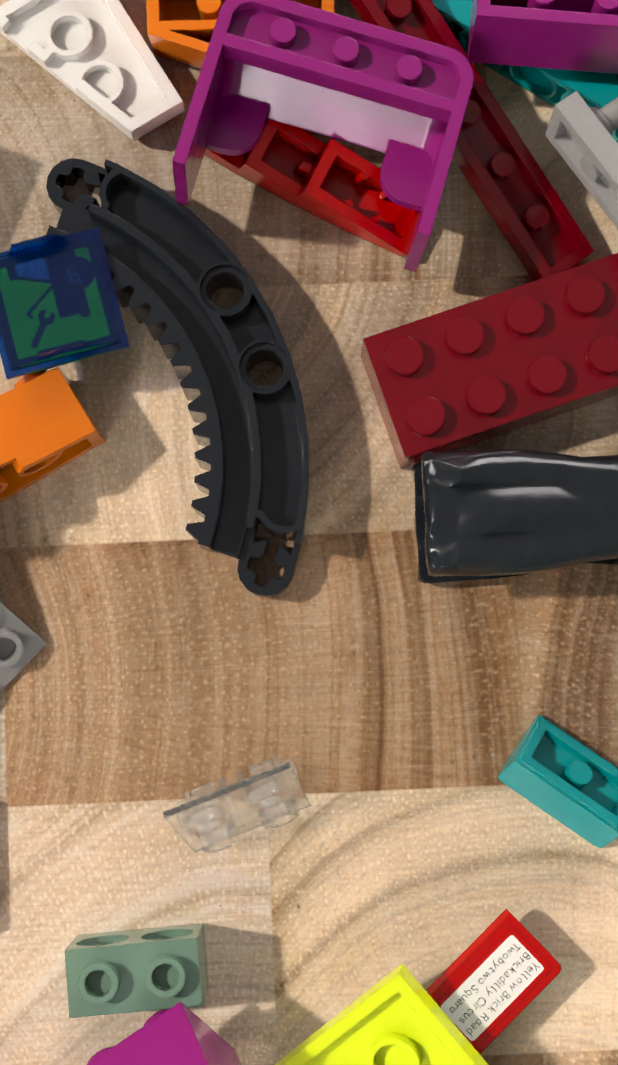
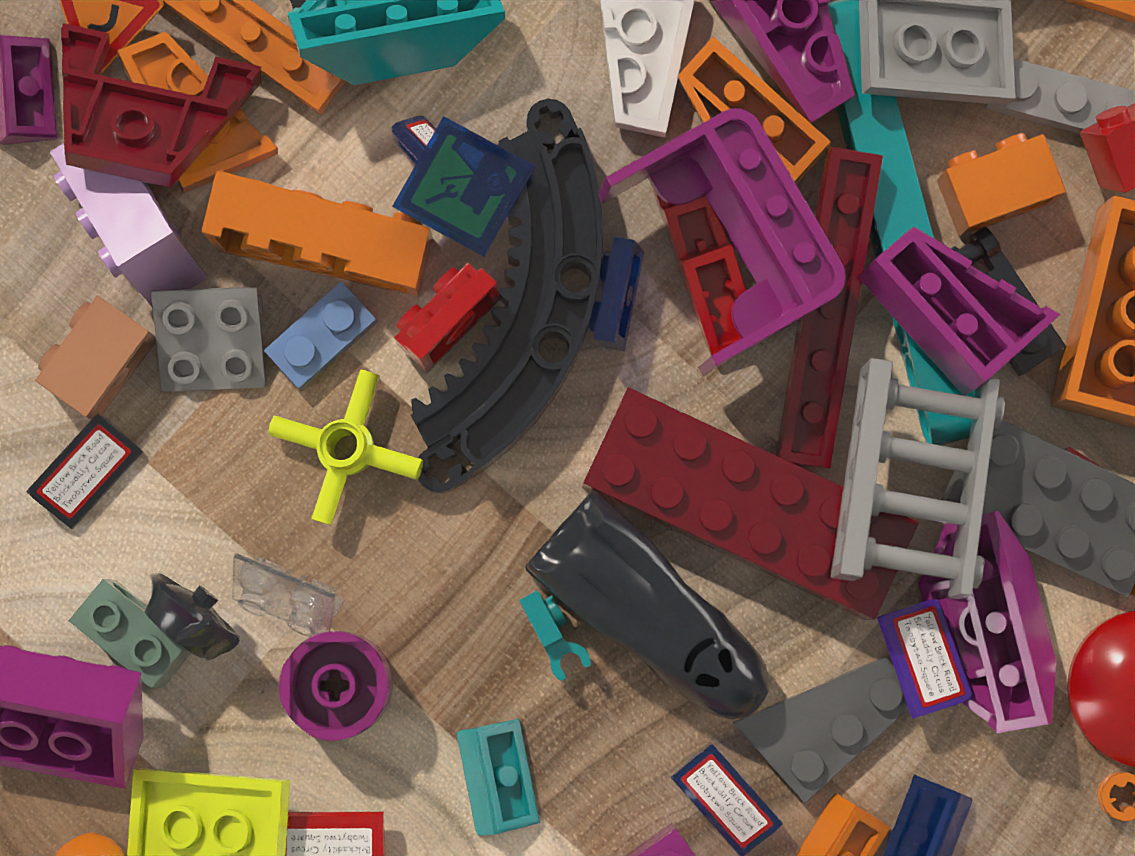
camera: 40 degrees right, 0 degrees up
(52, 553) = (320, 336): none -> medium blue plate
(144, 638) = (325, 440): none -> neon yellow bar
(147, 426) = (457, 307): none -> red plate
(176, 908) = (190, 618): none -> black piece
(261, 256) = (621, 275): none -> clear blue plate
(361, 877) = (315, 708): none -> magenta brick
(483, 608) = (546, 620): none -> teal plate

